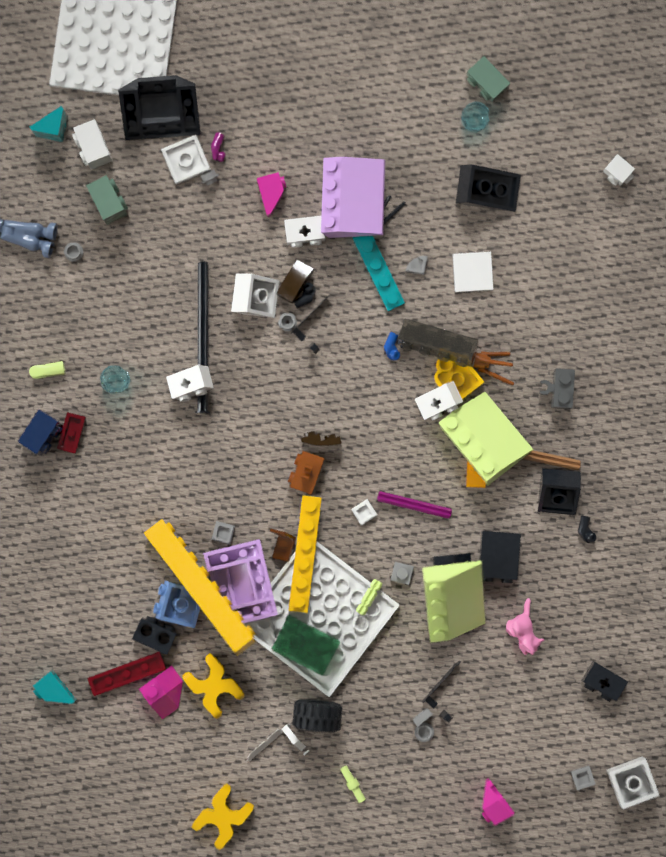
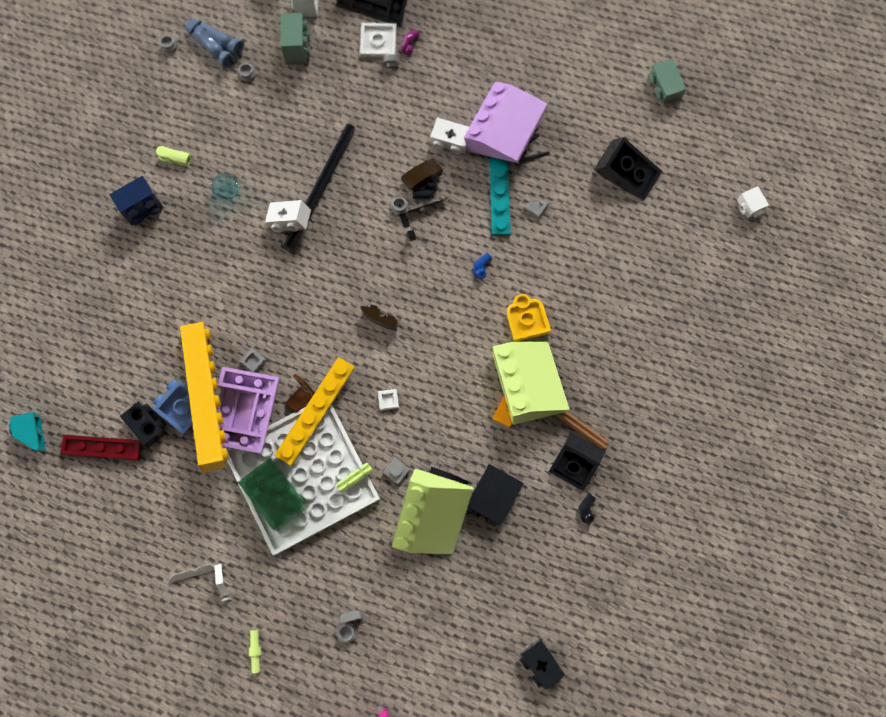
camera: 25 degrees right, 10 degrees down
(71, 432) = (165, 216): dark red plate -> none
(164, 692) = (124, 479): dark pink slope -> none
(213, 686) = (172, 495): yellow piece -> none
(222, 816) = (116, 624): yellow piece -> none
(255, 295) = (382, 170): white slope -> none
(271, 191) = (437, 93): dark pink slope -> none
(306, 473) = (352, 340): dark orange brick -> none
(317, 715) = (251, 567): black tyre -> none
(414, 505) = (437, 413): magenta axle -> none
(429, 404) = (502, 328): white brick -> none
(433, 703) = (365, 602): black piece -> none
(438, 343) = (524, 277): clear smoke brick -> none
(472, 272) = (583, 234): white tile -> none
(478, 110) = (646, 101): clear light blue hair -> none
(483, 361) = (558, 313): dark orange plant -> none
(522, 629) = (485, 575): bright pink animal -> none
(561, 389) = (619, 368): dark grey brick -> none

